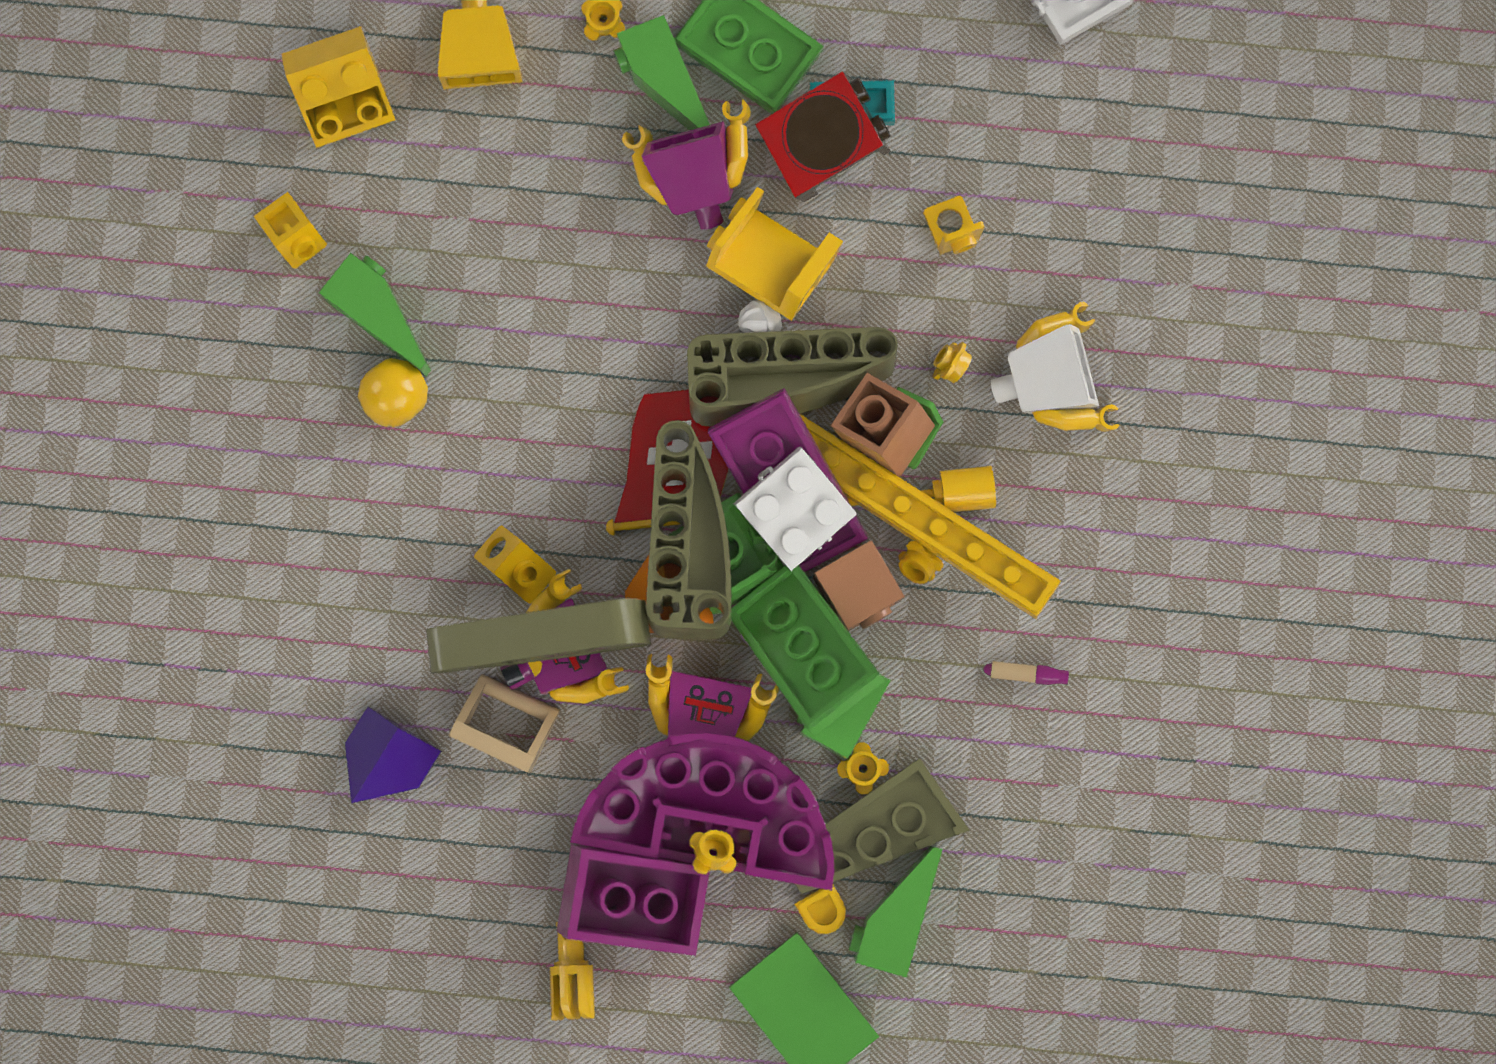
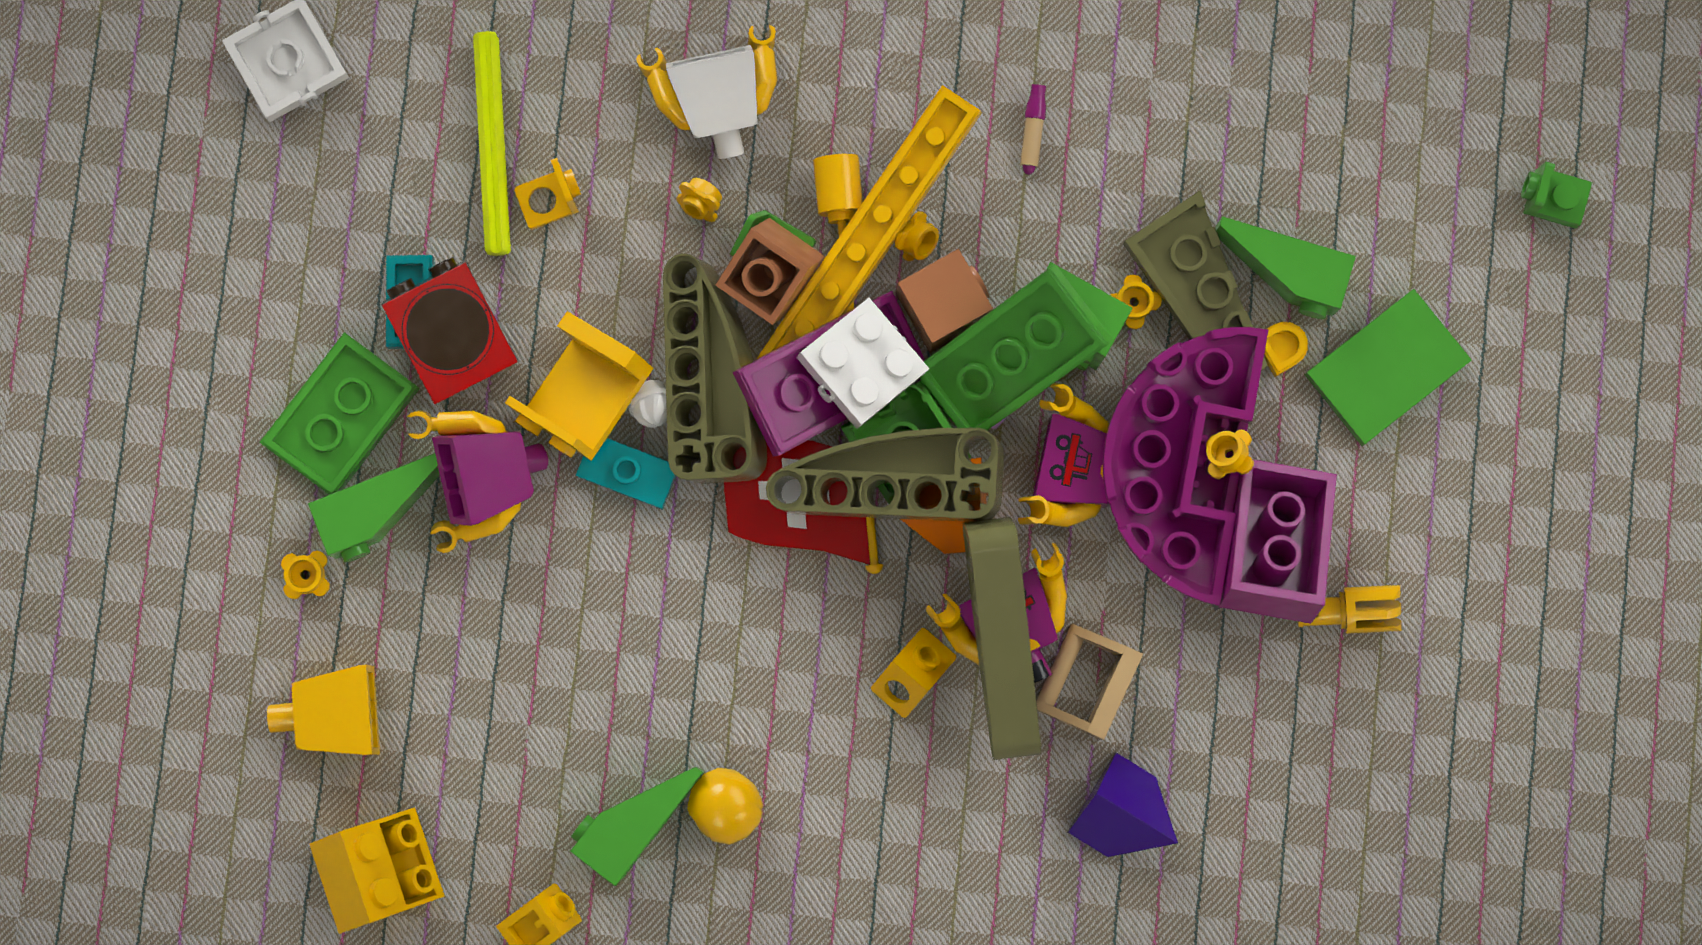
camera: 90 degrees left, 0 degrees up
(697, 302) = (629, 473): none -> teal plate
(1001, 173) = (491, 143): none -> neon yellow axle

